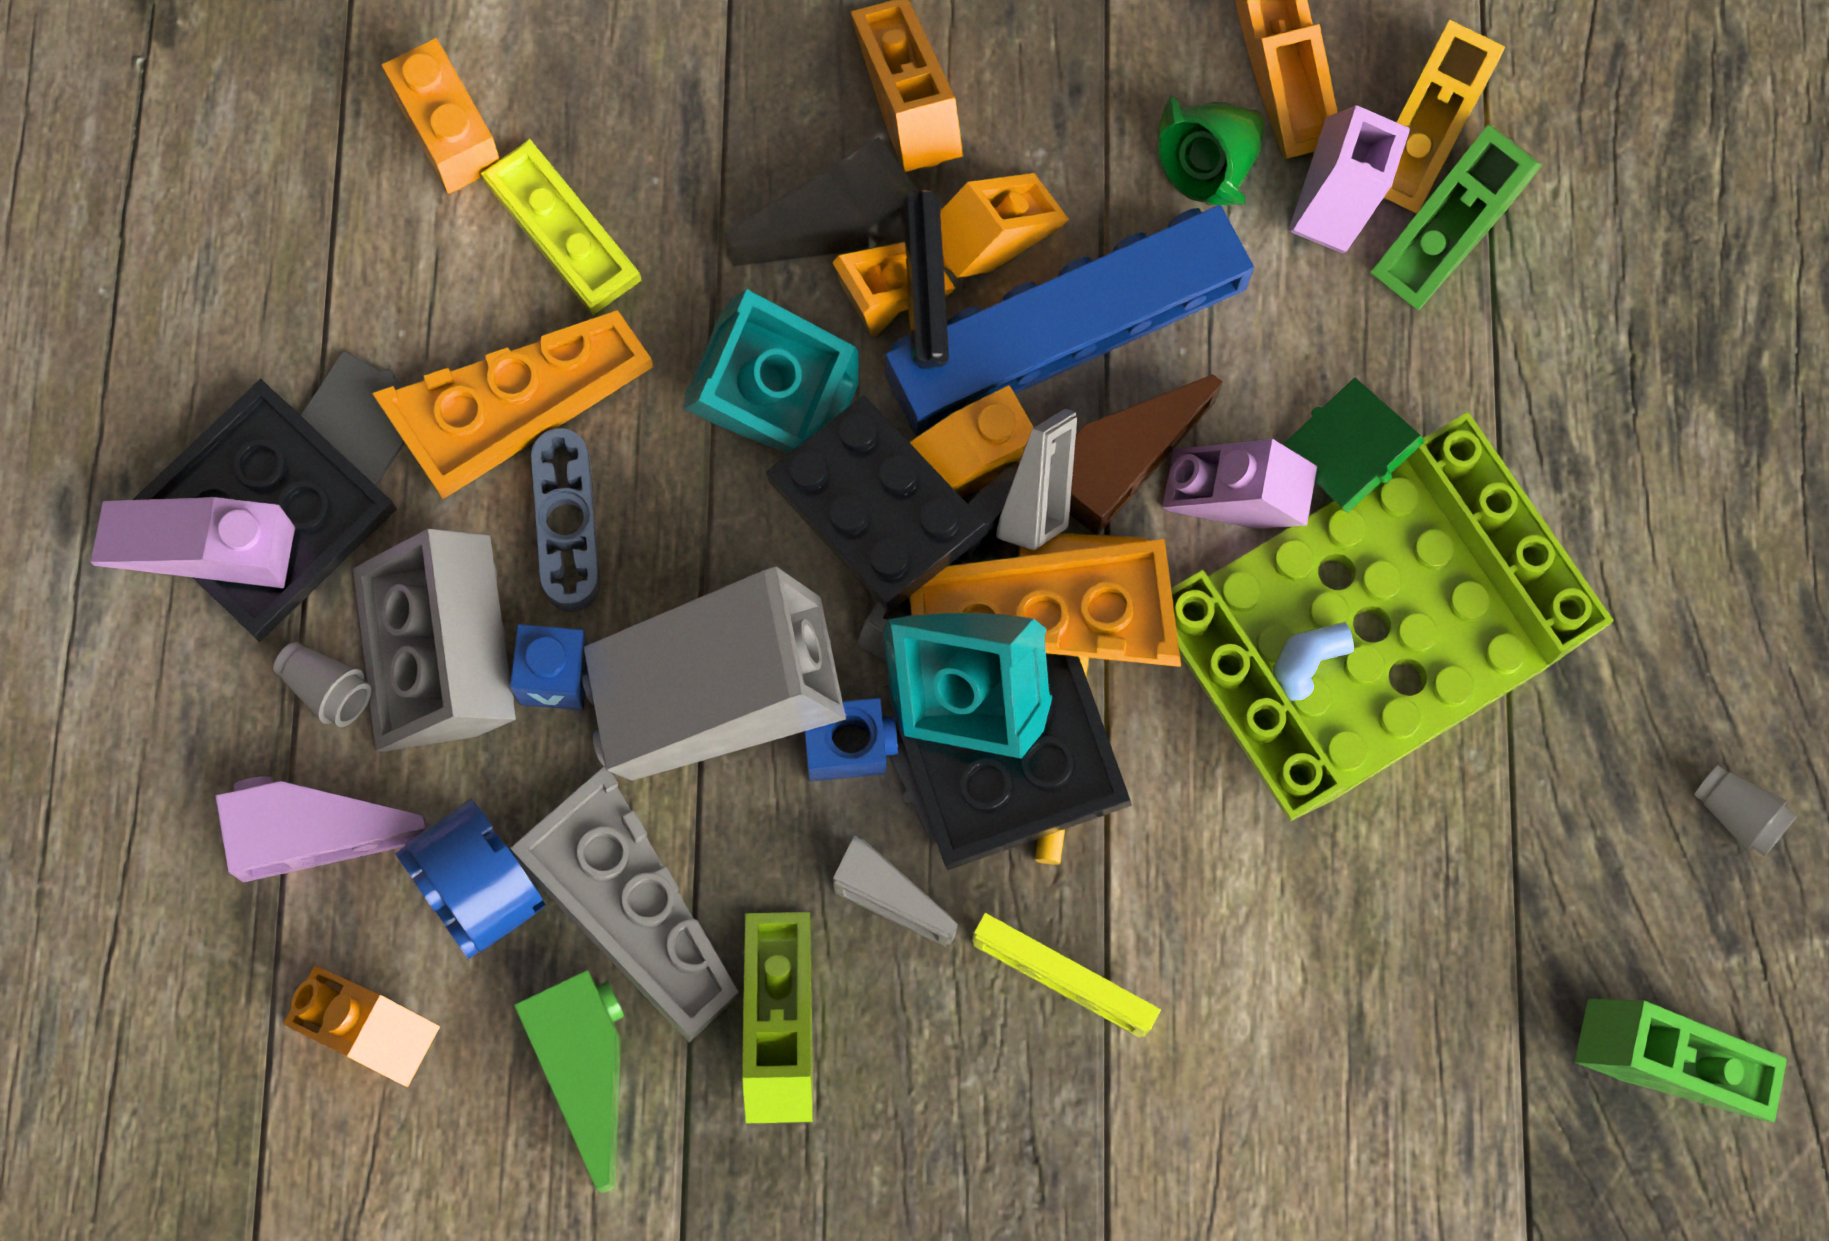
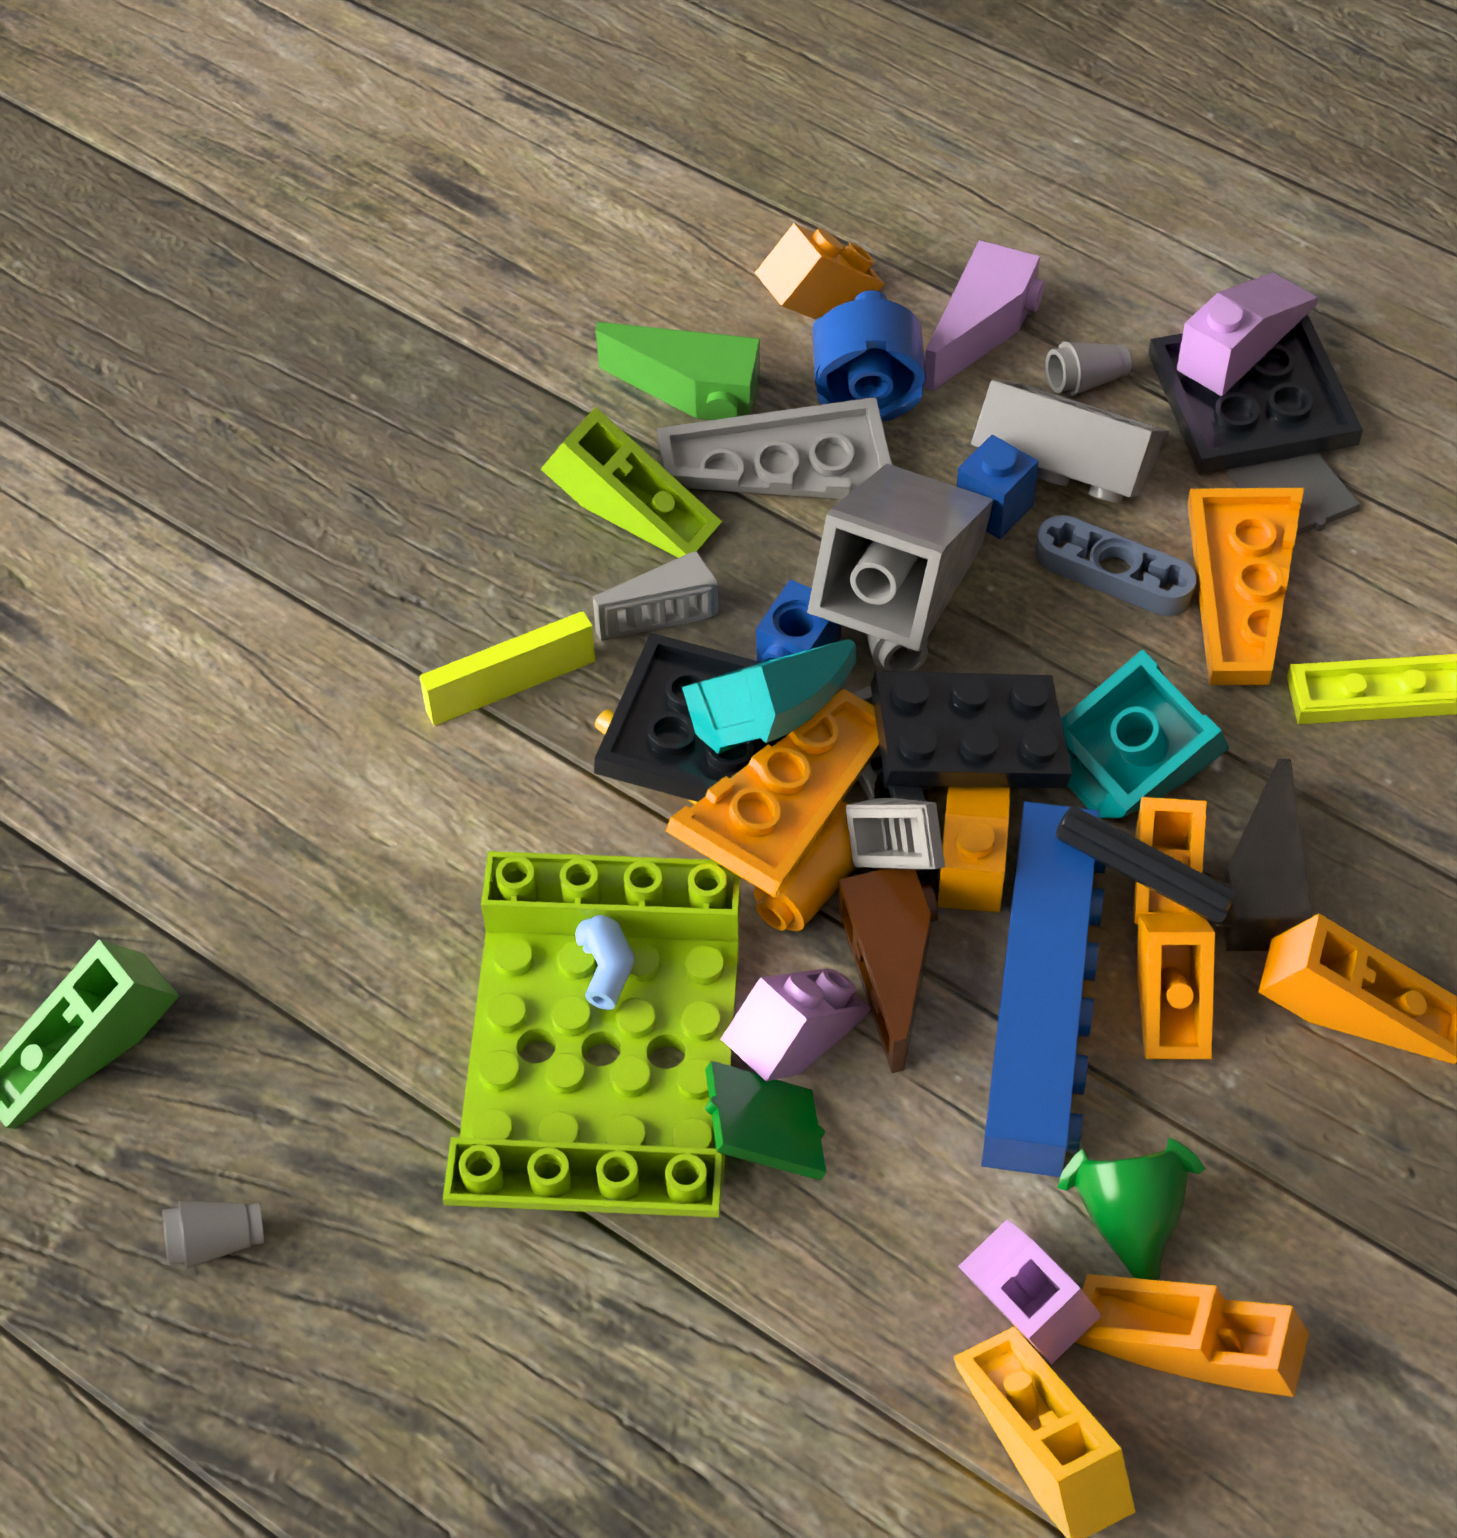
camera: 130 degrees right, 20 degrees down
(1456, 216) = (926, 1383): bright green slope -> none

